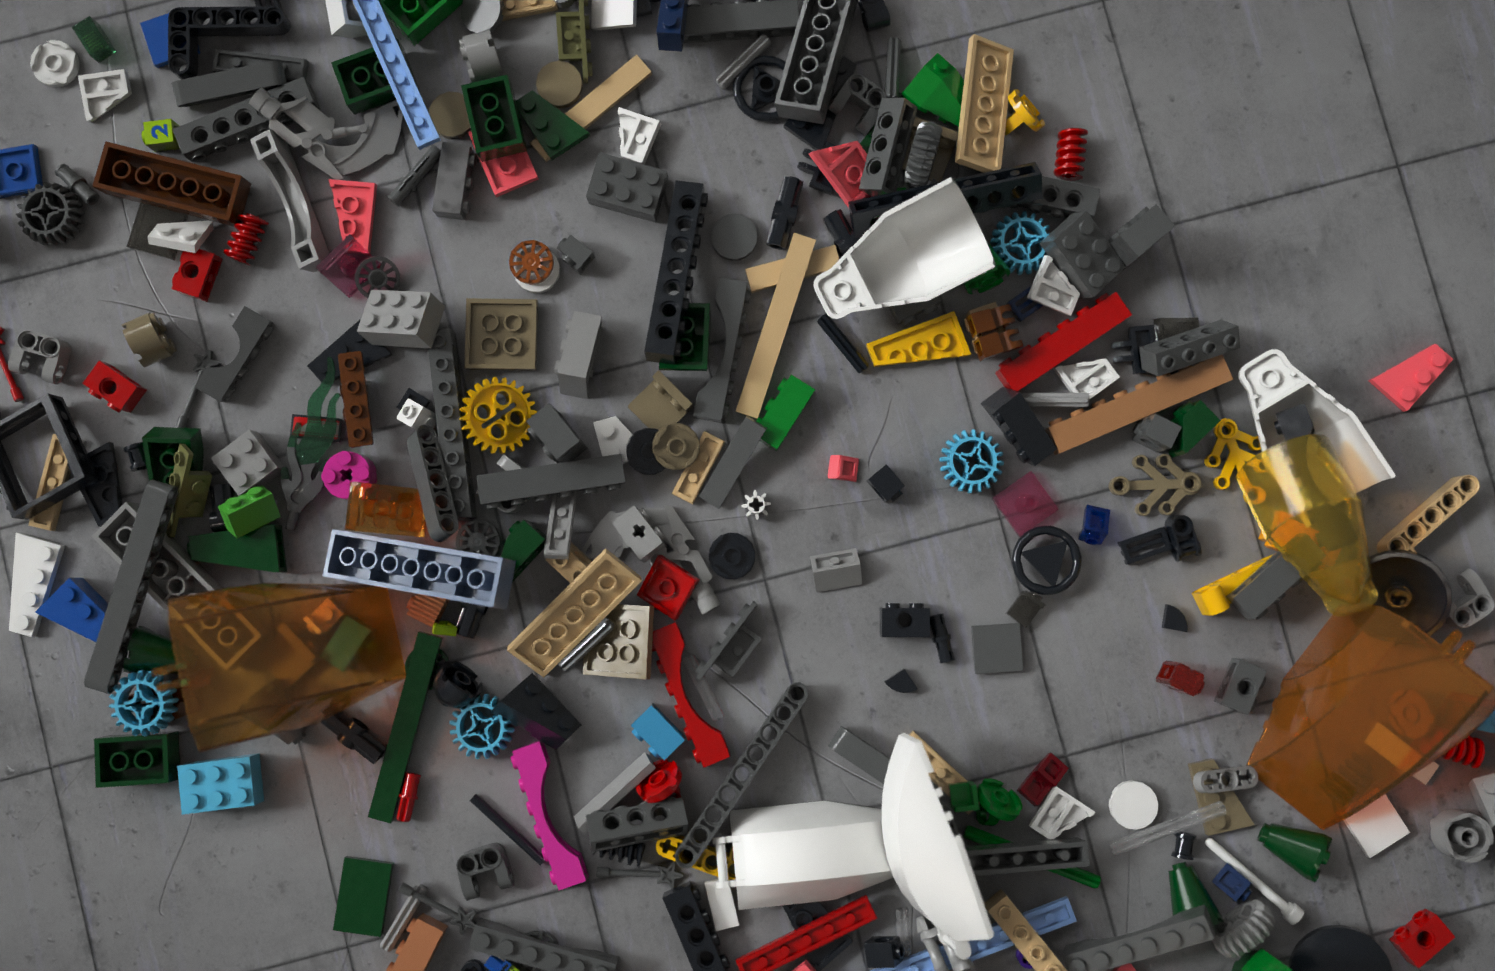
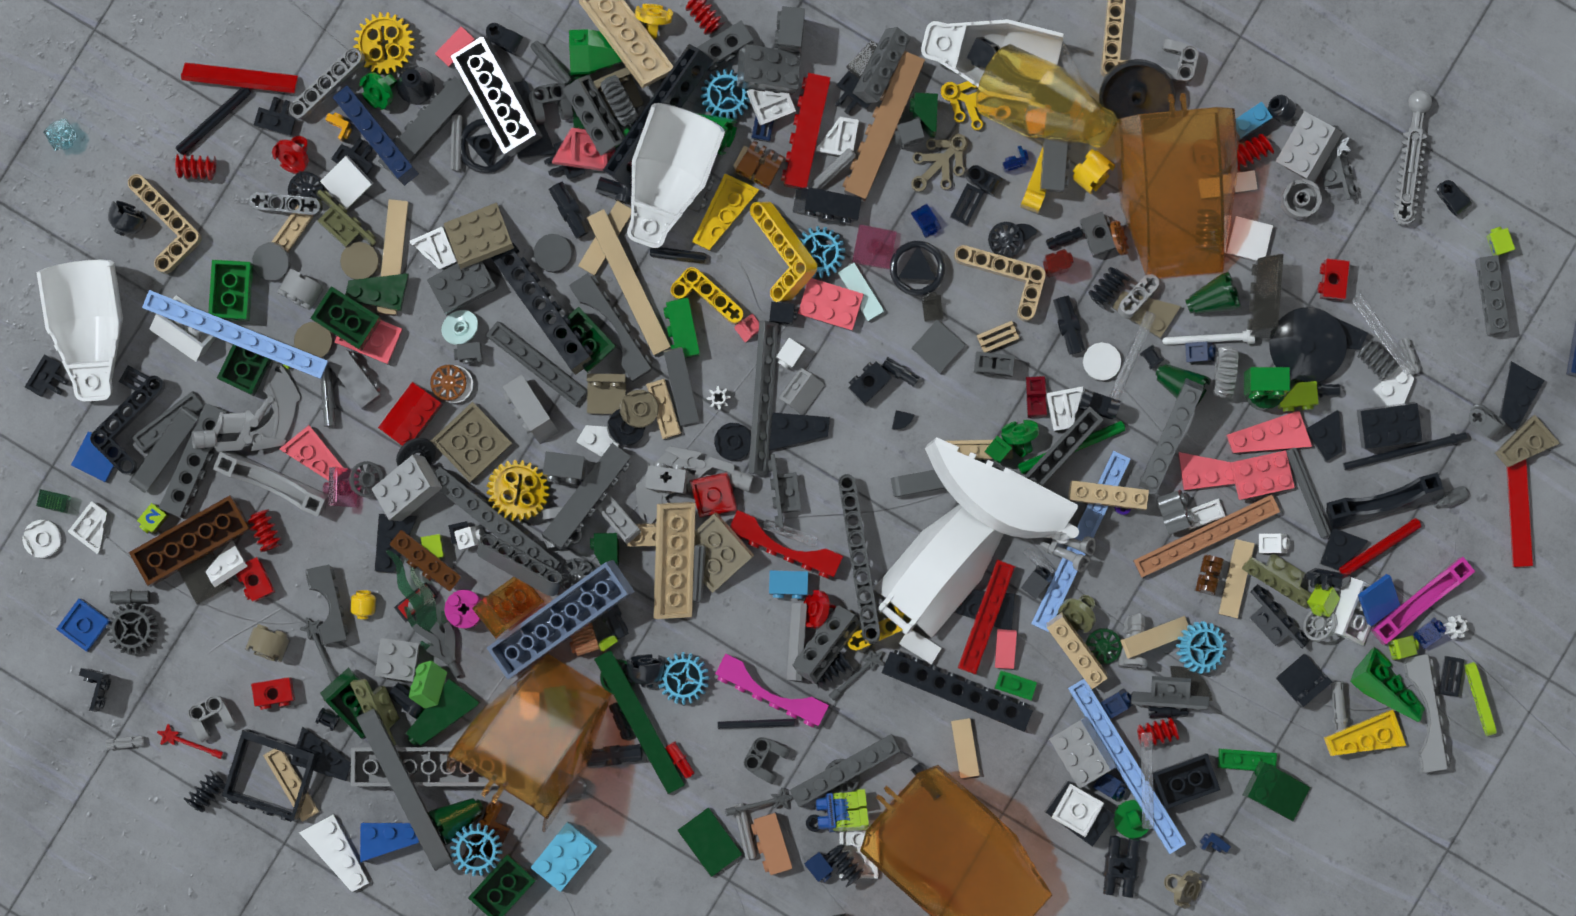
camera: 45 degrees left, 0 degrees up
(267, 385) = (363, 604): none -> yellow head
(379, 394) = (434, 545): none -> lime brick
(389, 710) = (620, 720): none -> black axle
(449, 291) = (417, 445): none -> black wheel
(470, 261) = (410, 415): none -> red slope
(538, 712) = (709, 637): black wedge -> none
(588, 223) = (455, 323): none -> light aqua dish
(625, 320) = (536, 363): none -> dark grey tile
(682, 158) = (478, 235): none -> dark tan plate
(796, 543) = (763, 398): none -> dark grey plate
(799, 599) = (796, 429): none -> black wing
(833, 386) = (709, 298): none -> yellow beam
(857, 527) = (790, 354): none -> white brick
(937, 517) = (830, 303): none -> coral plate
(951, 403) = (790, 248): none -> yellow beam
(974, 532) = (854, 281): none -> light aqua tile
(1034, 714) = (994, 364): none -> dark grey brick
(1078, 698) = (982, 343): none -> tan tile
(1100, 850) = (1101, 404): none -> black piece
(1125, 642) = (1007, 272): none -> tan beam
(1135, 743) = (1069, 325): none -> black piece
(1151, 610) = (1006, 239): none -> black wheel
(1204, 742) = (1108, 286): none -> black piece
(1205, 659) = (1064, 238): none -> black axle
(1225, 549) = (1013, 163): none -> clear blue bracket
(1258, 709) = (1119, 237): none -> dark orange wheel
(1292, 625) = (1093, 171): none -> yellow brick
(1348, 897) = (1266, 296): none -> clear smoke slope

